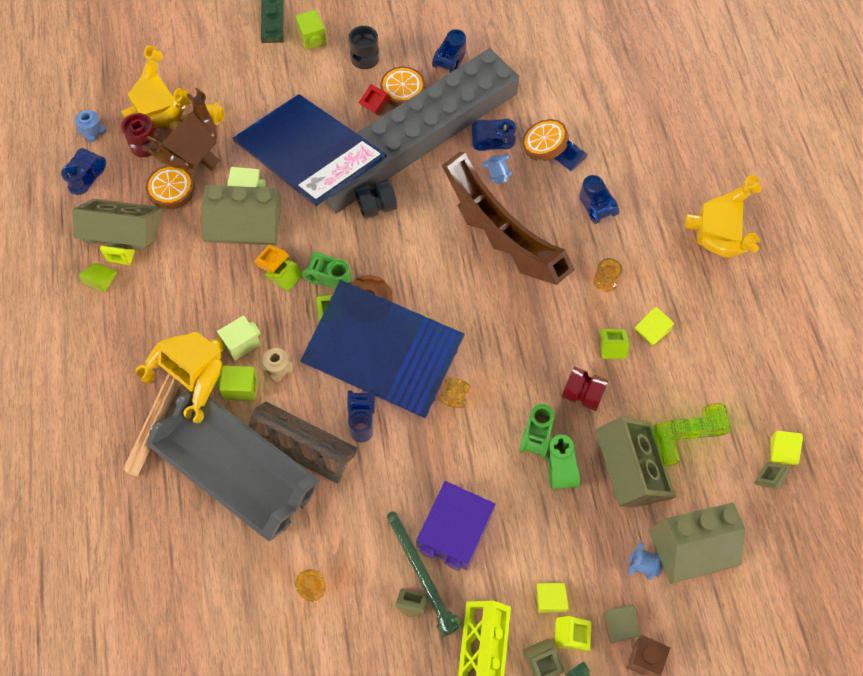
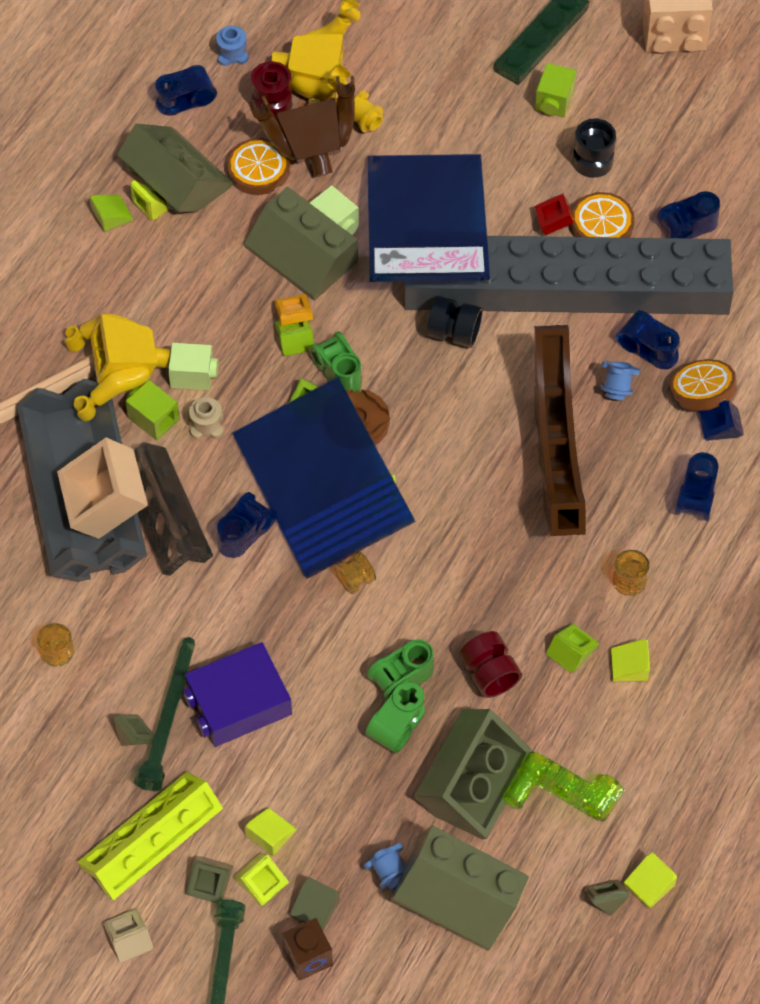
camera: 40 degrees right, 5 degrees down
(256, 458) = (102, 488): none -> light nougat piece

